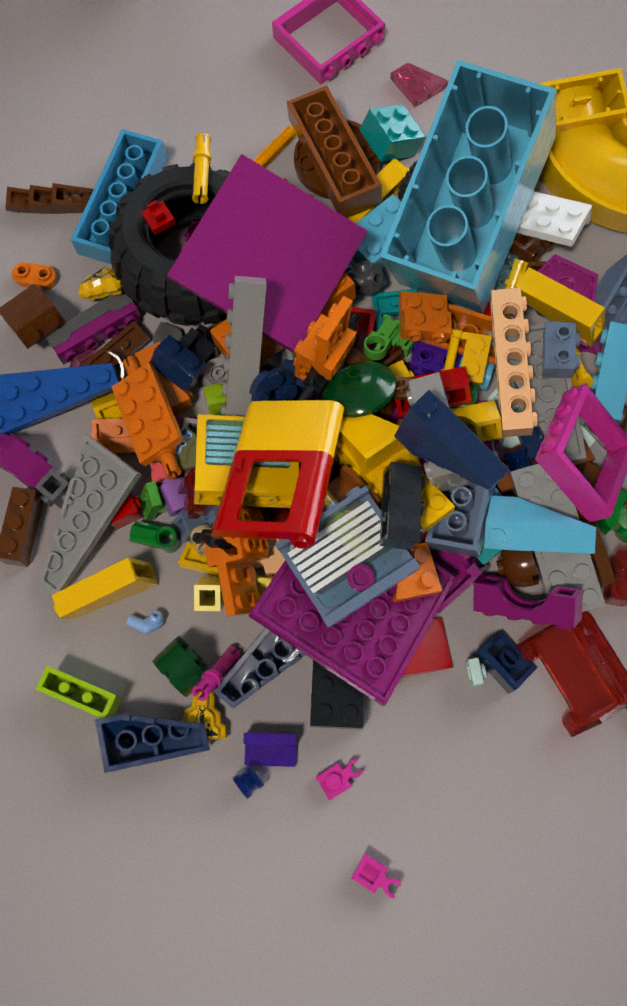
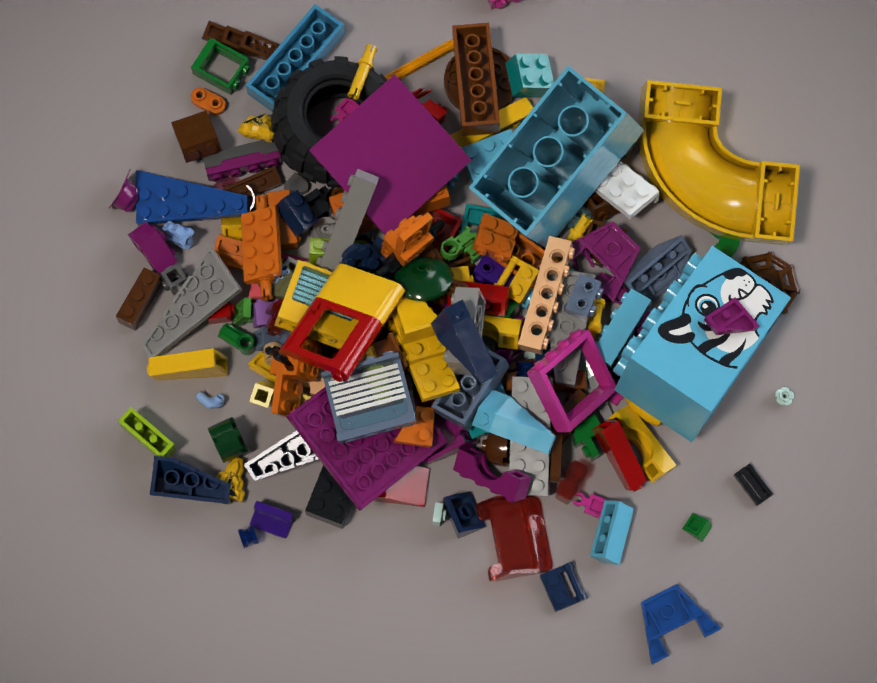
camera: 10 degrees right, 0 degrees up
(16, 226) = (206, 55): none -> green window
(45, 435) = (178, 235): none -> light blue hips
(158, 217) = (317, 101): red tile -> none
(212, 678) = (247, 453): dark pink pin -> none
(335, 780) = (311, 557): dark pink plate -> none
(360, 577) = (373, 415): magenta tile -> none
(367, 277) = (461, 191): flat silver brick -> none
(372, 875) = (314, 628): dark pink plate -> none
(401, 506) = (419, 374): black brick -> none
(417, 83) = (570, 35): clear pink wing -> none
(562, 304) = (600, 264): yellow slope -> none

